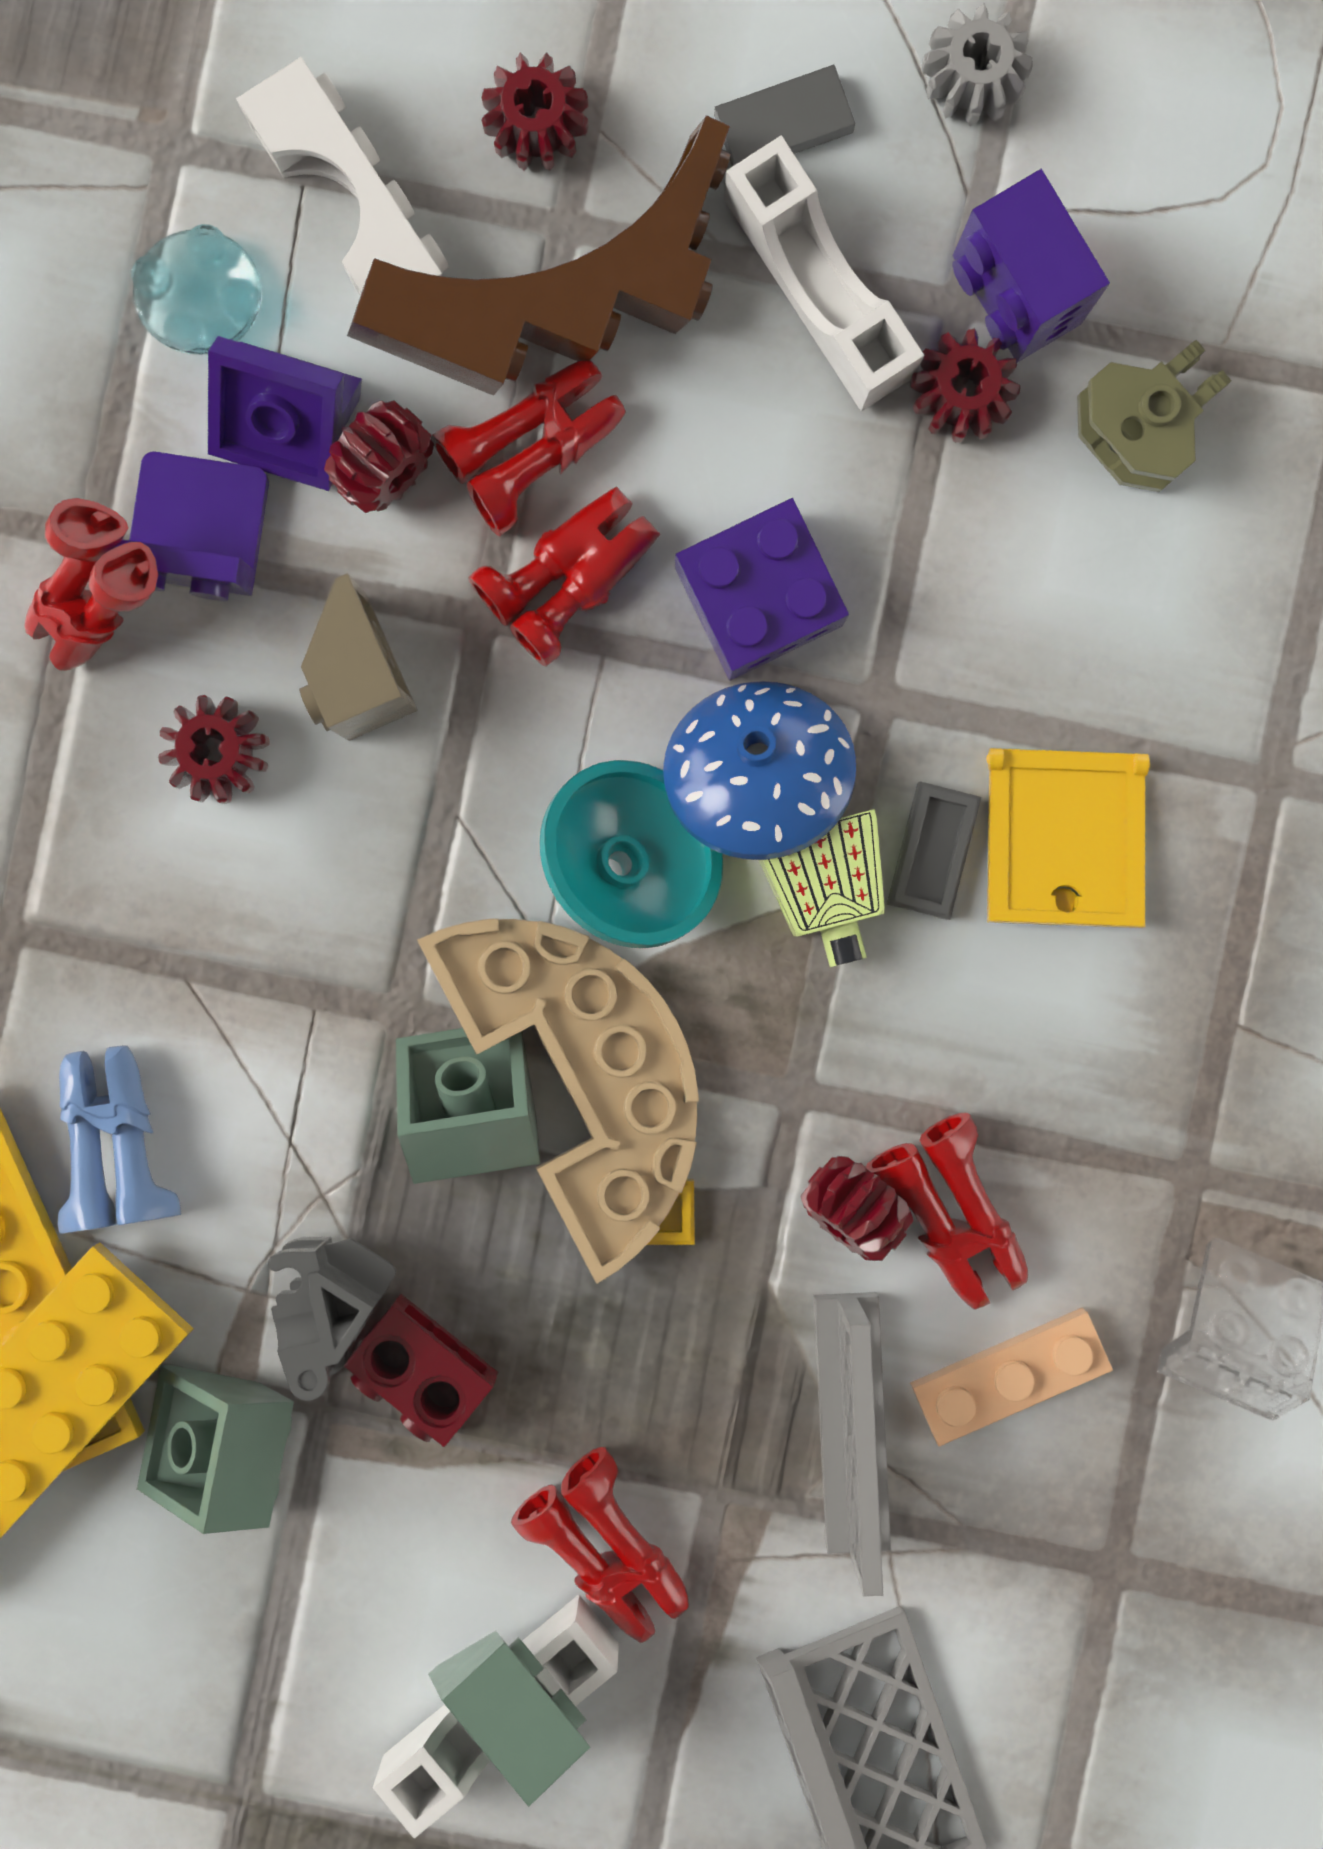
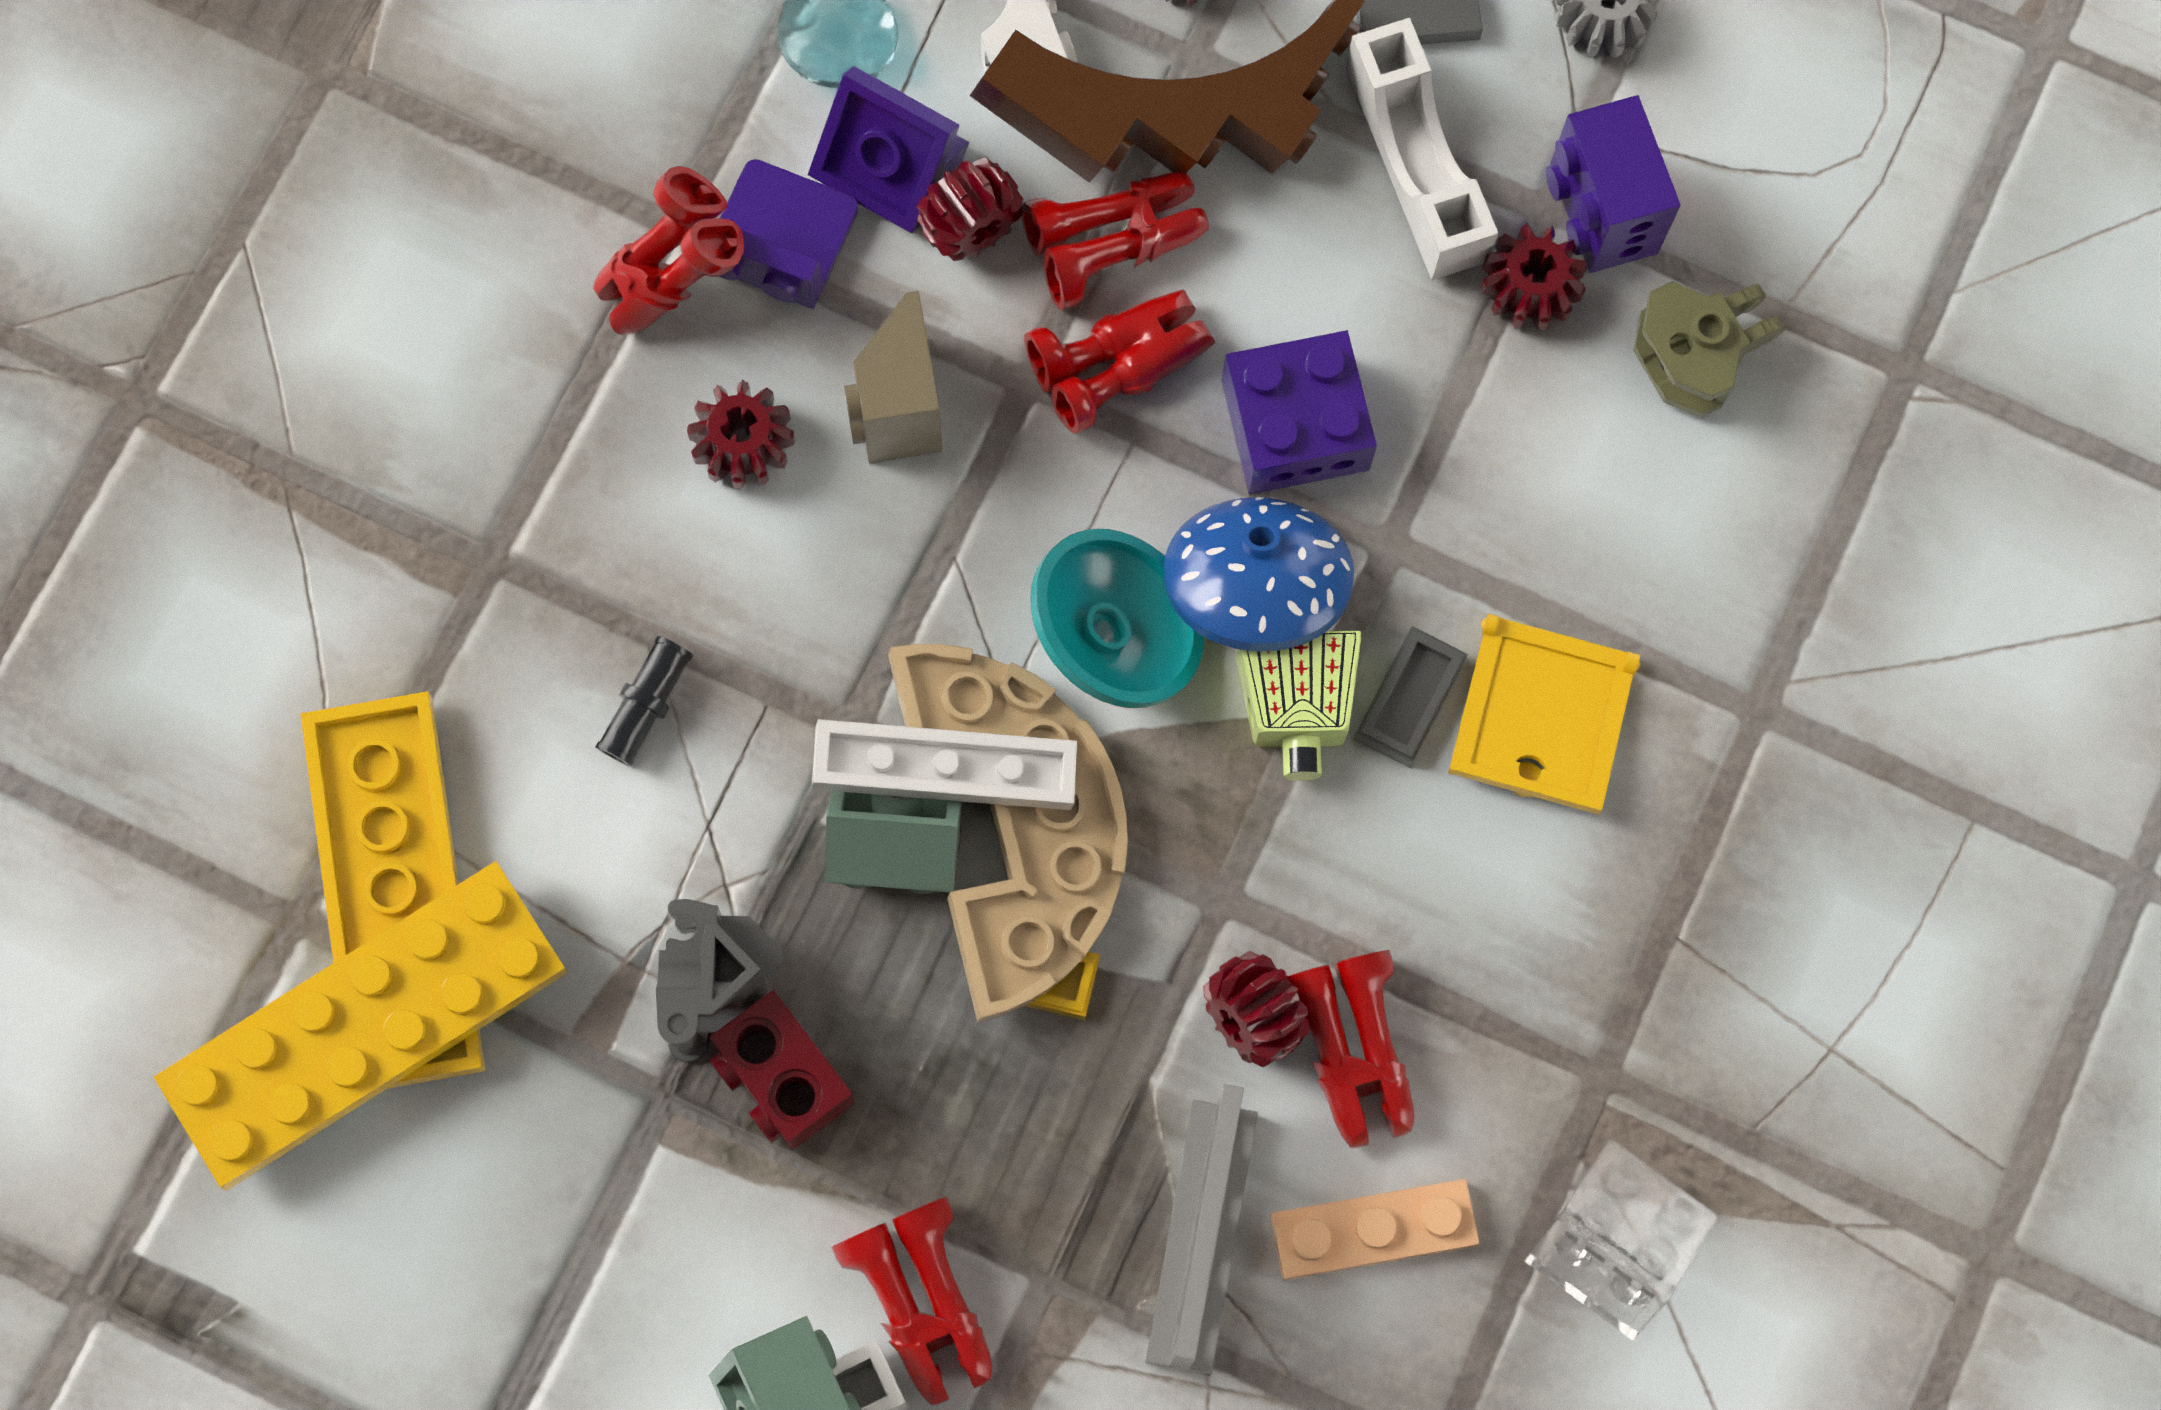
camera: 10 degrees right, 15 degrees down
(126, 1118) = (556, 756): medium blue piece -> none
(193, 1042) = (644, 701): none -> black pin
(215, 1449) = (554, 1097): sand green slope -> none
(498, 1052) = (944, 764): none -> white plate

